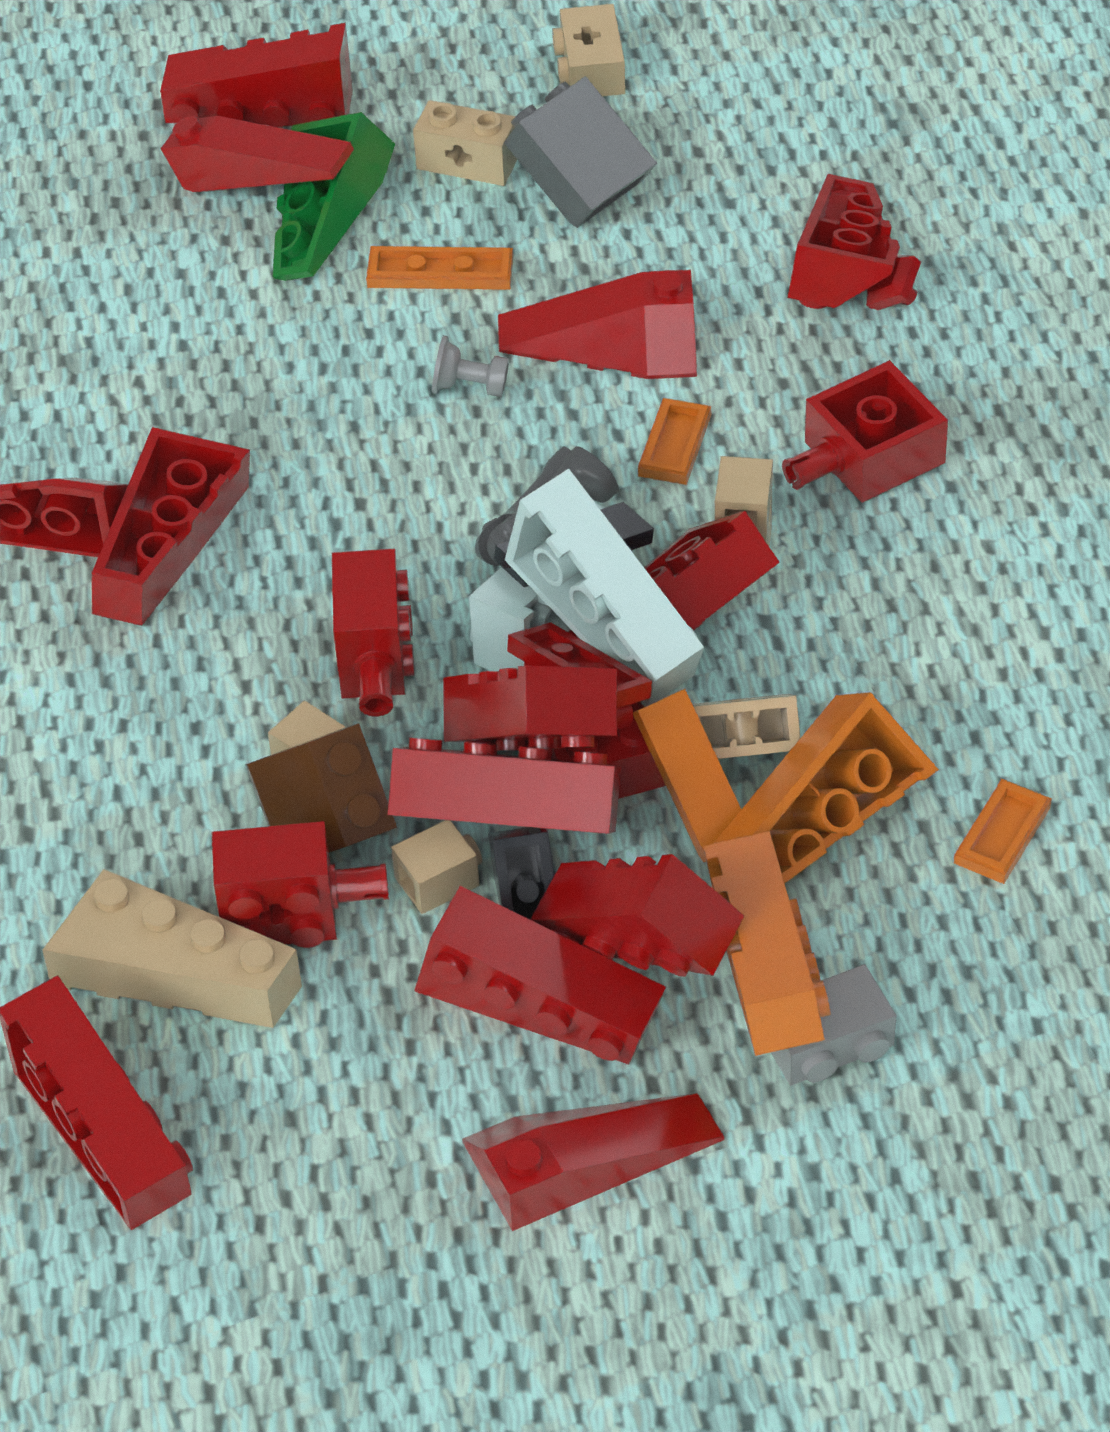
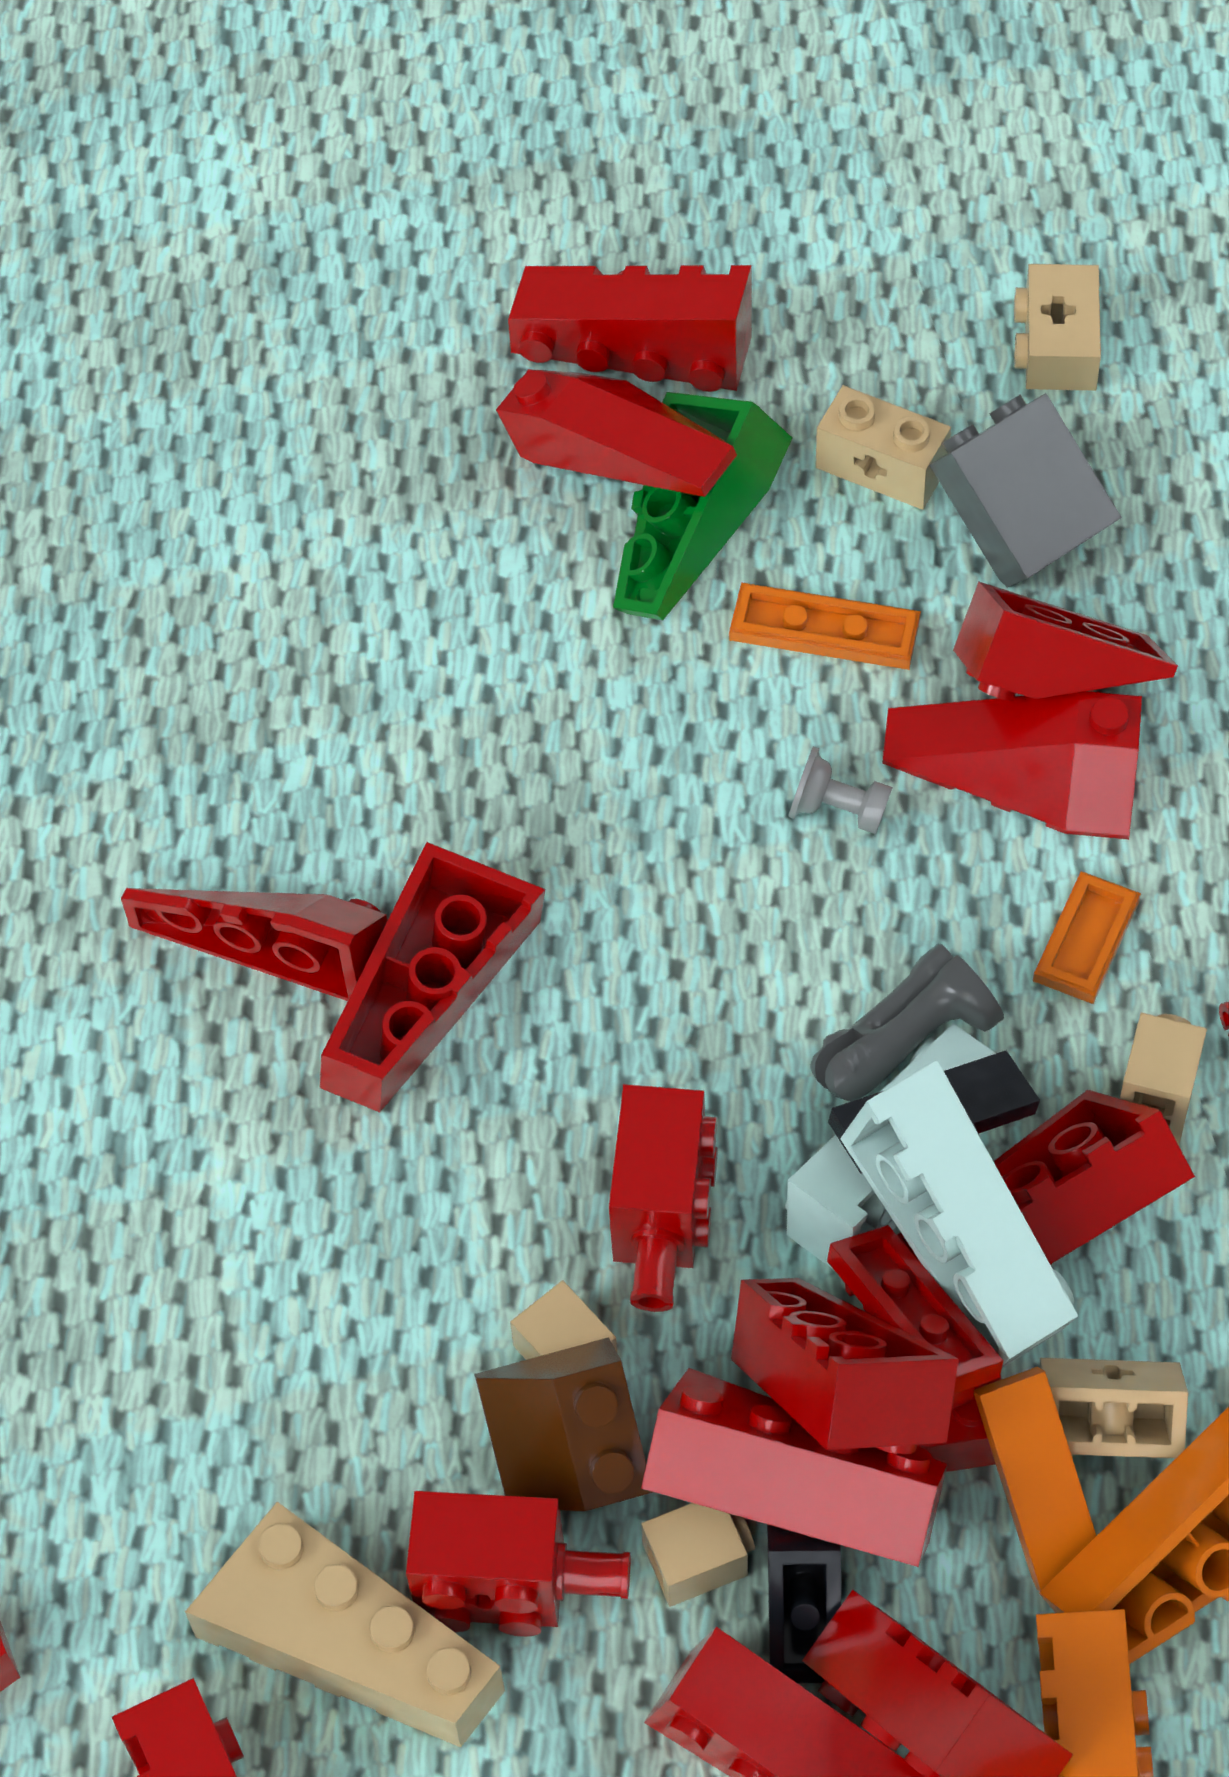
camera: 10 degrees right, 10 degrees up
(600, 248) = (1050, 651): none -> red slope

